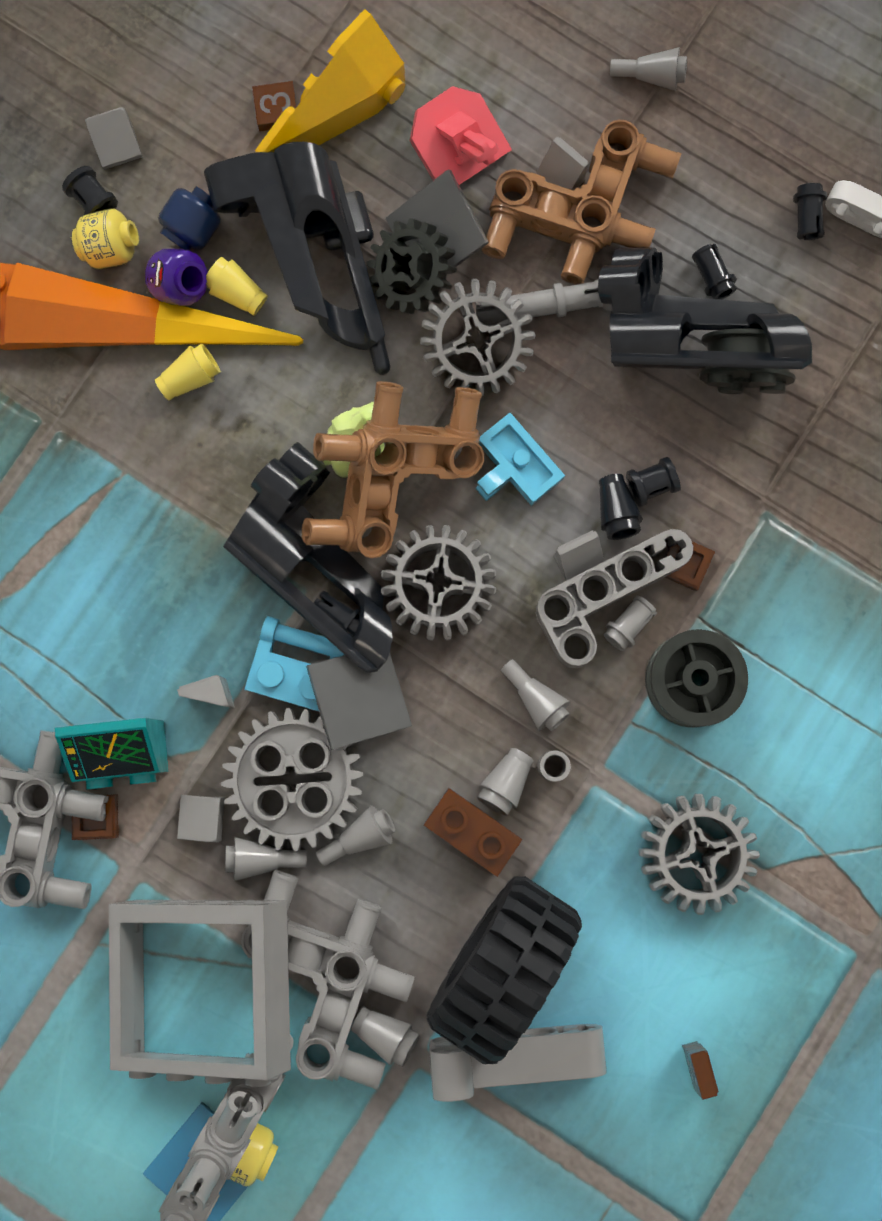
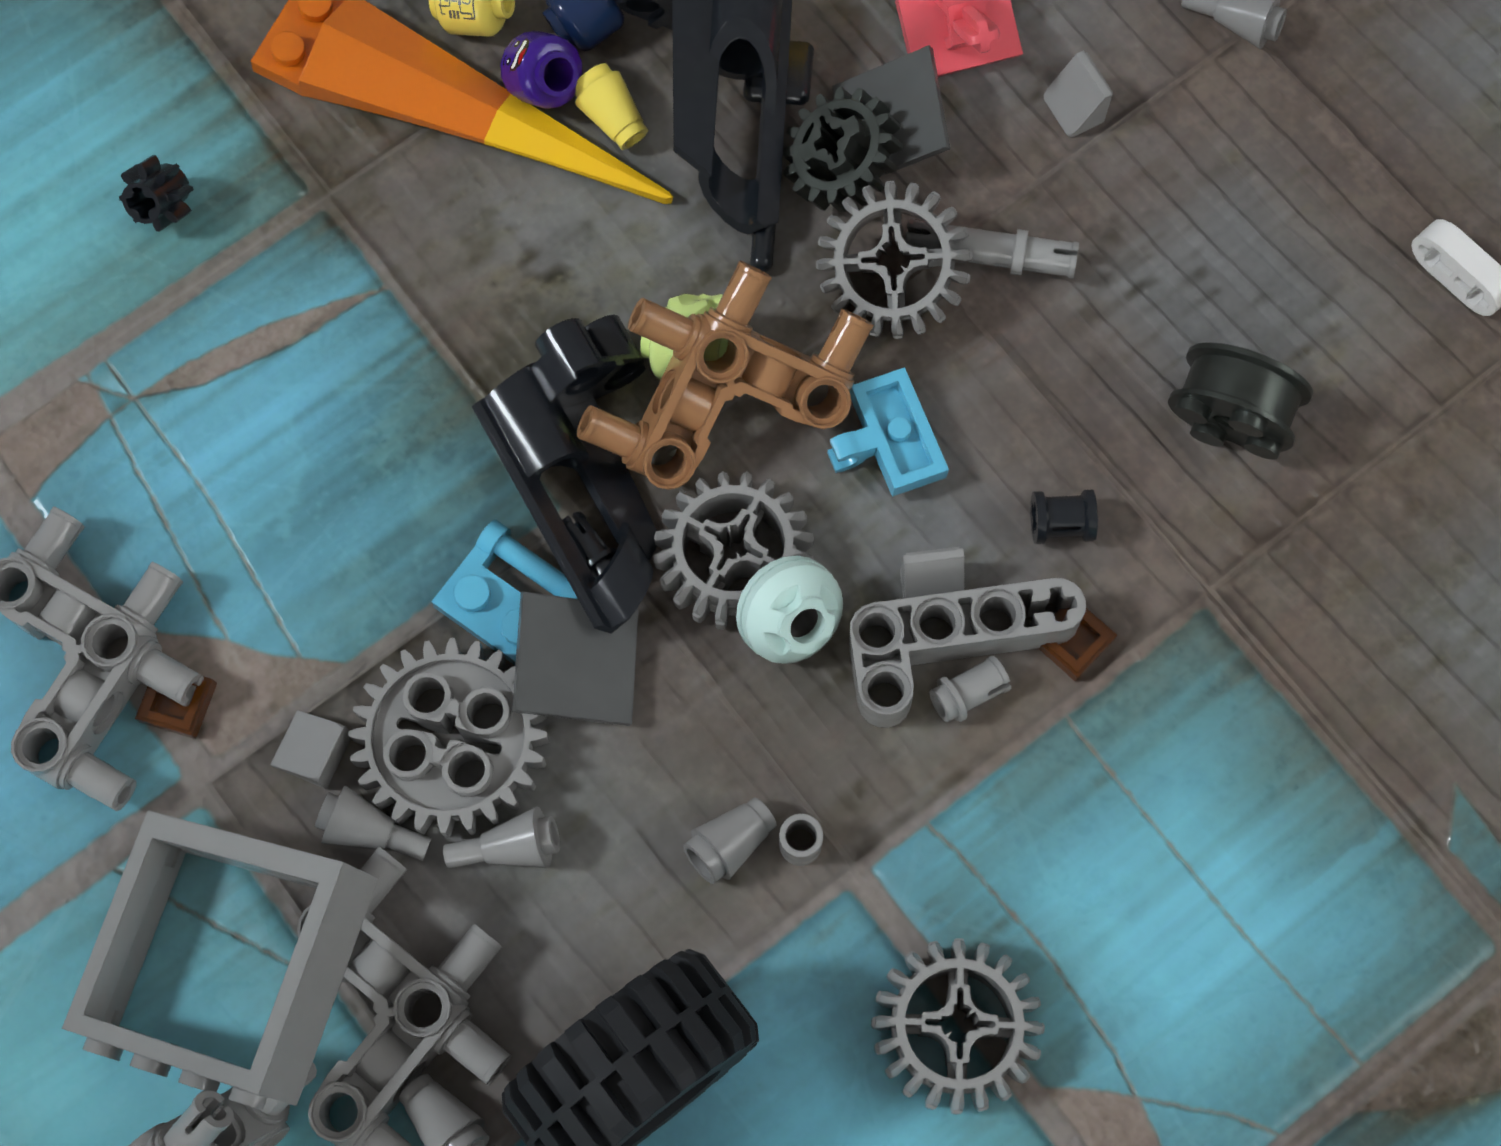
camera: 20 degrees right, 10 degrees down
(114, 750) = (234, 616): slope -> none
(188, 372) = (512, 189): light yellow cone -> none
(209, 690) = (384, 586): light grey slope -> none
(473, 832) = (660, 885): reddish brown brick -> none
(484, 609) = (777, 597): none -> light aqua piece
(541, 702) = (816, 755): light grey cone -> none
(561, 211) = (1060, 145): medium nougat pin -> none
(618, 509) = (1005, 537): black cone -> none
(651, 326) = (1124, 320): black panel -> none
(714, 272) = (1237, 293): black pin -> none
(722, 677) = (1026, 823): pearl dark grey wheel -> none
(810, 210) = (1391, 235): black pin -> none

